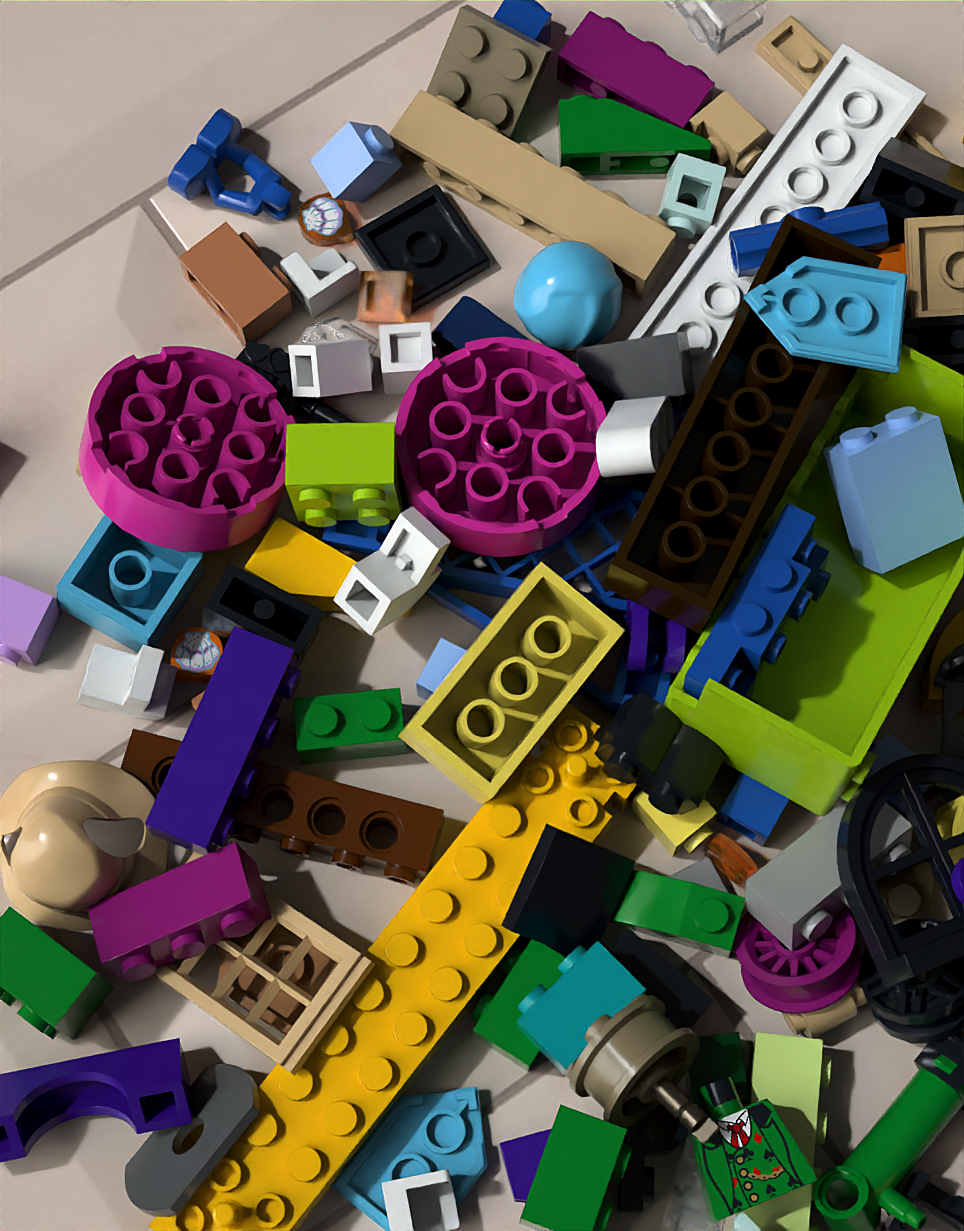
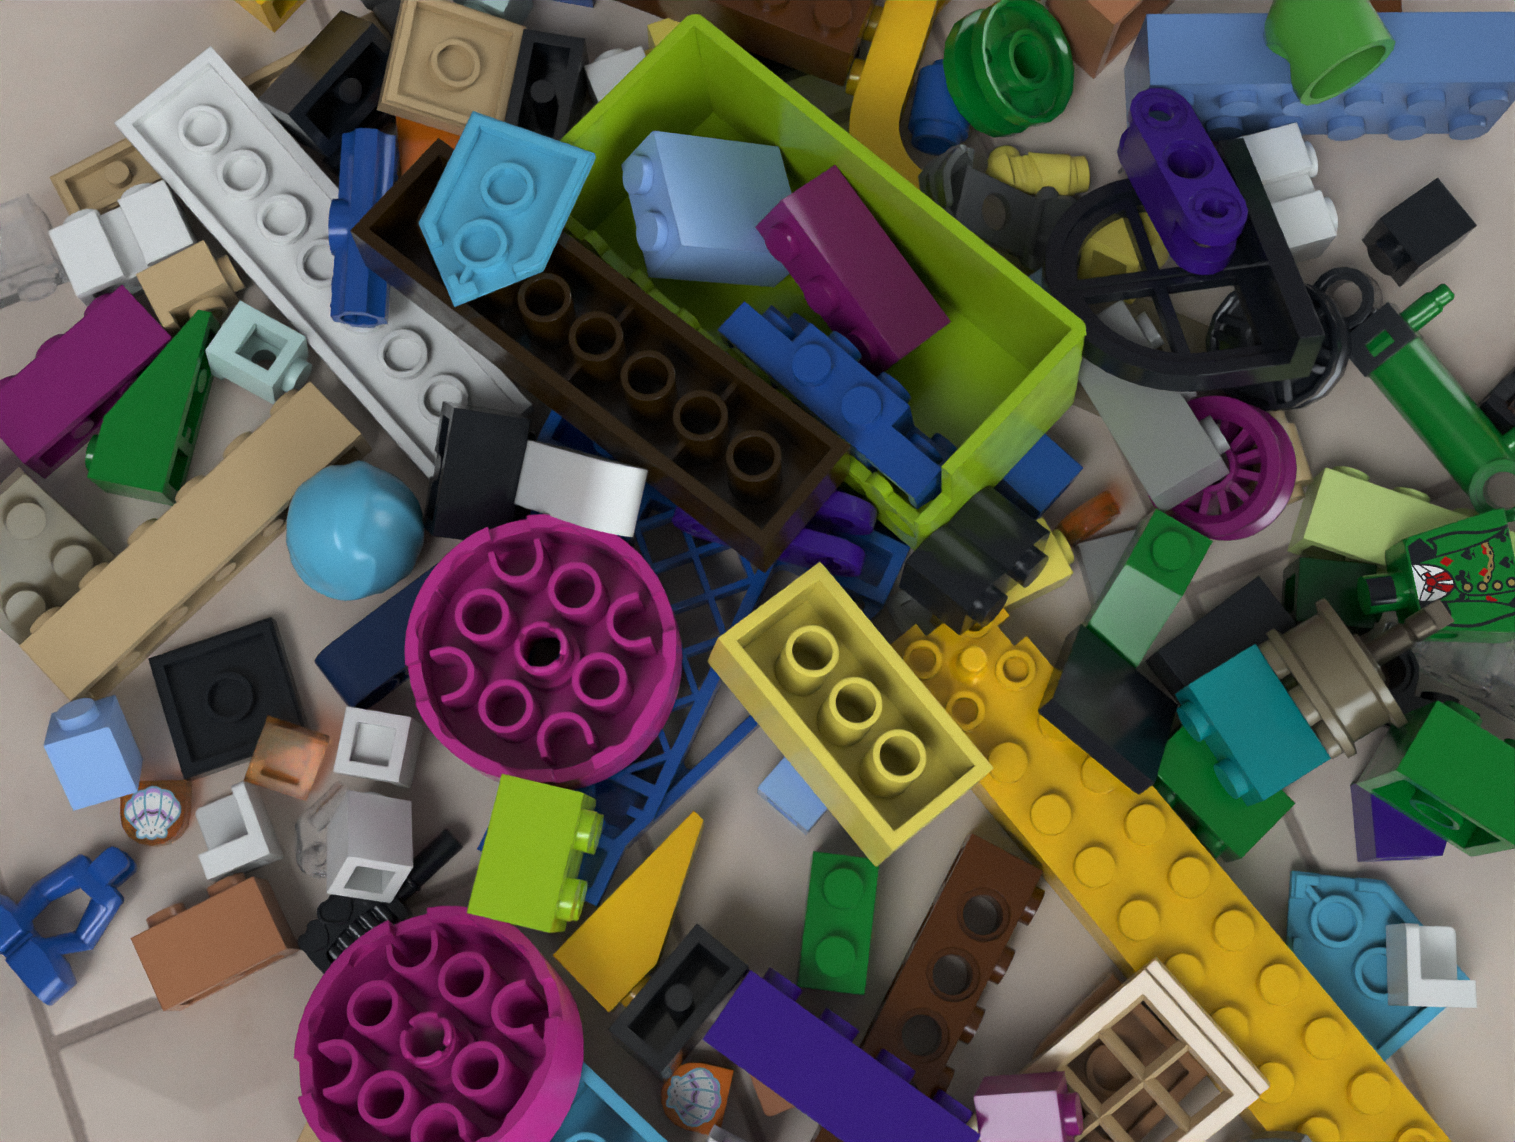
camera: 80 degrees left, 5 degrees up
(395, 575) = (676, 824): white brick -> none
(743, 67) = (115, 246): none -> white brick
(871, 604) = (851, 271): none -> magenta brick

